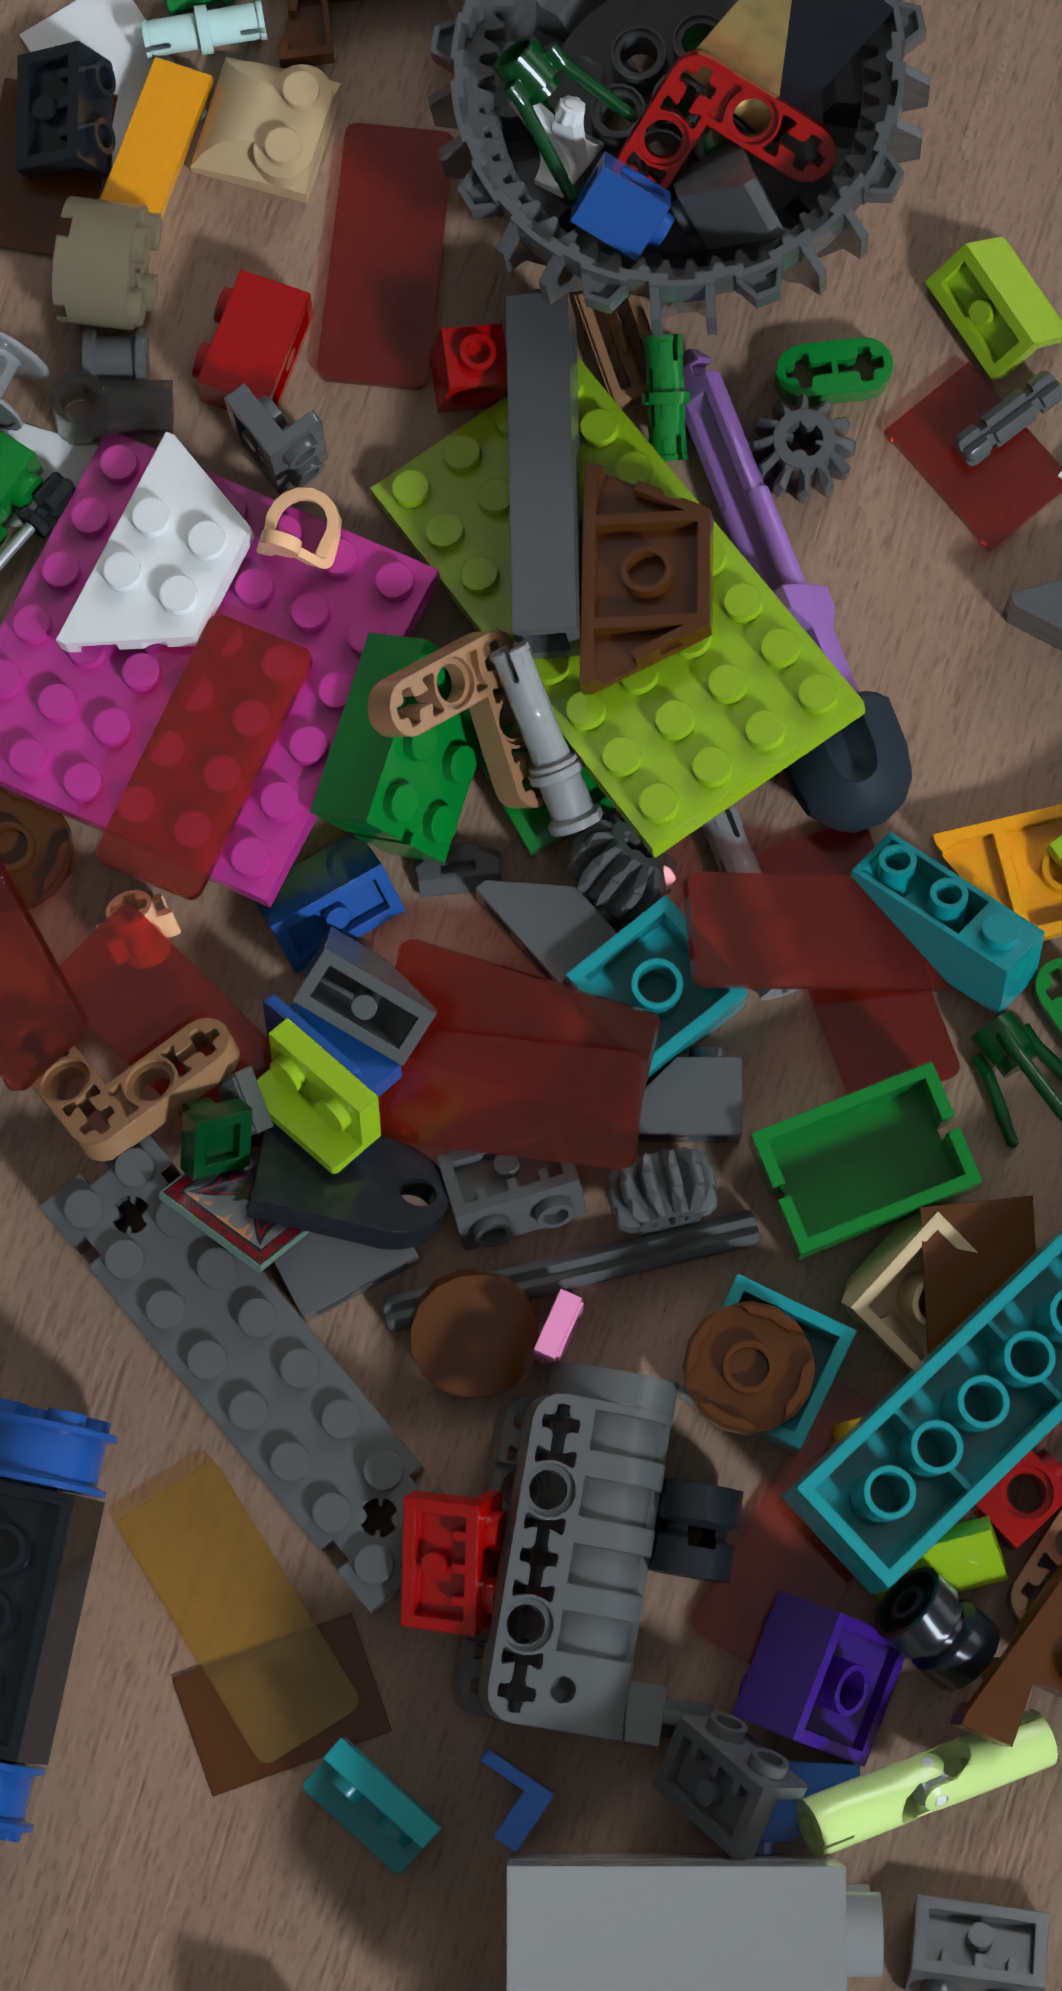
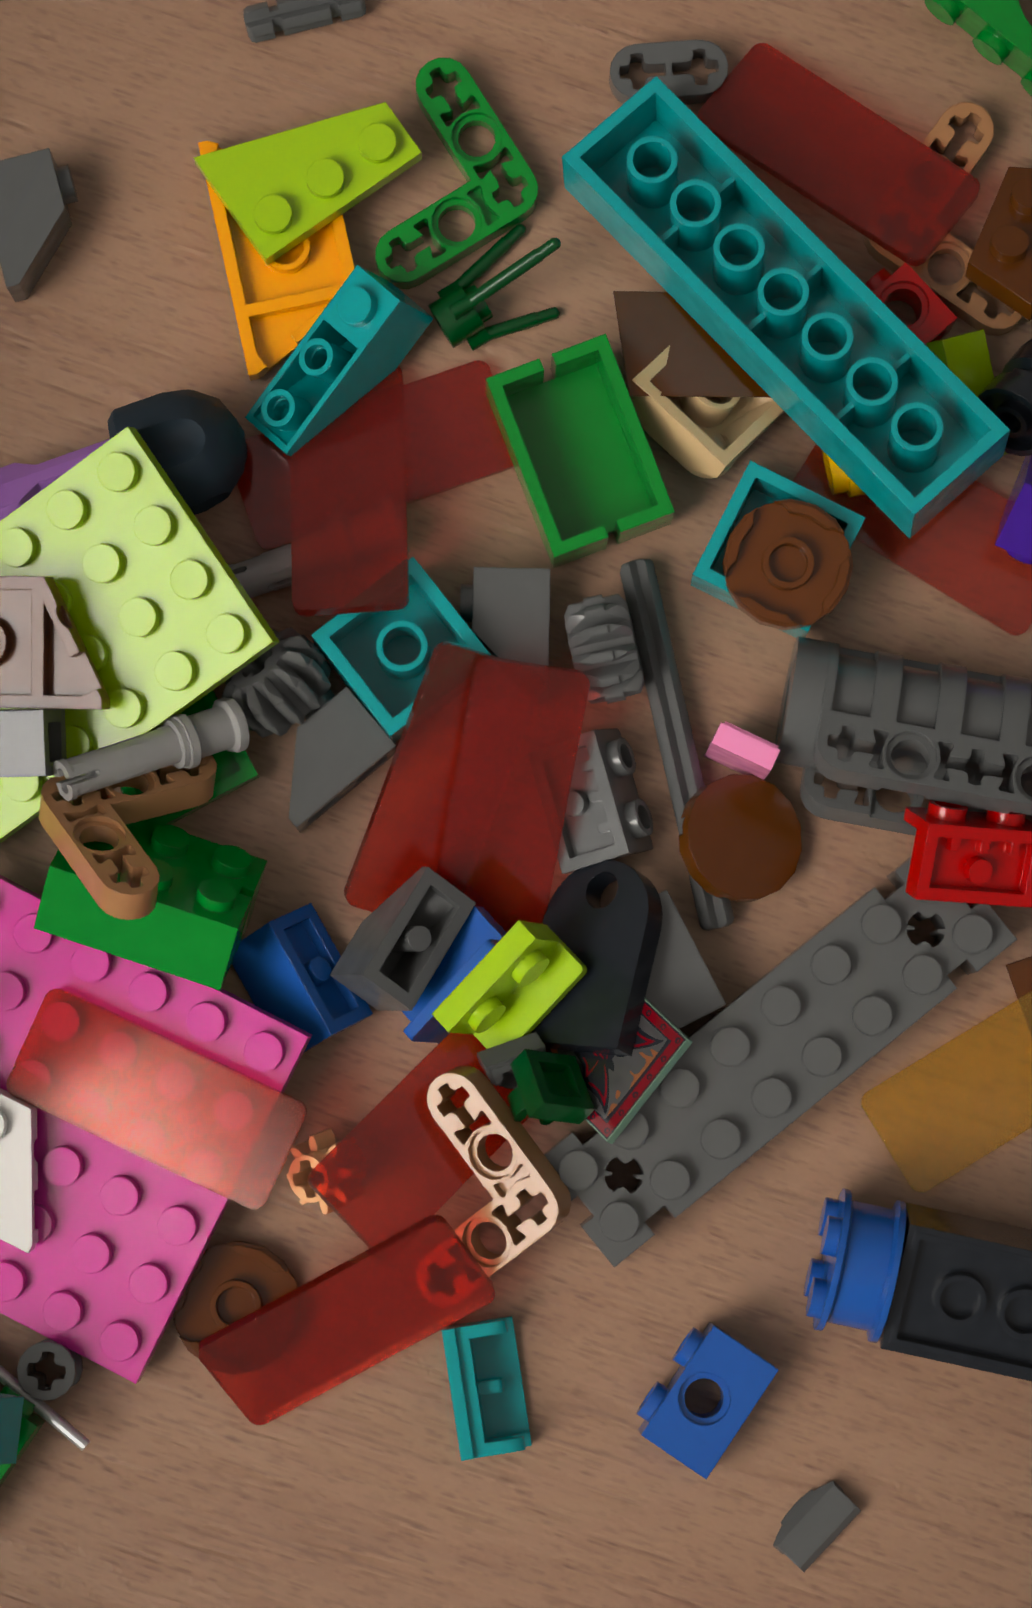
camera: 95 degrees left, 5 degrees up
(462, 872) = (270, 838): dark grey piece -> none
(698, 1507) = (913, 617): black wheel -> none

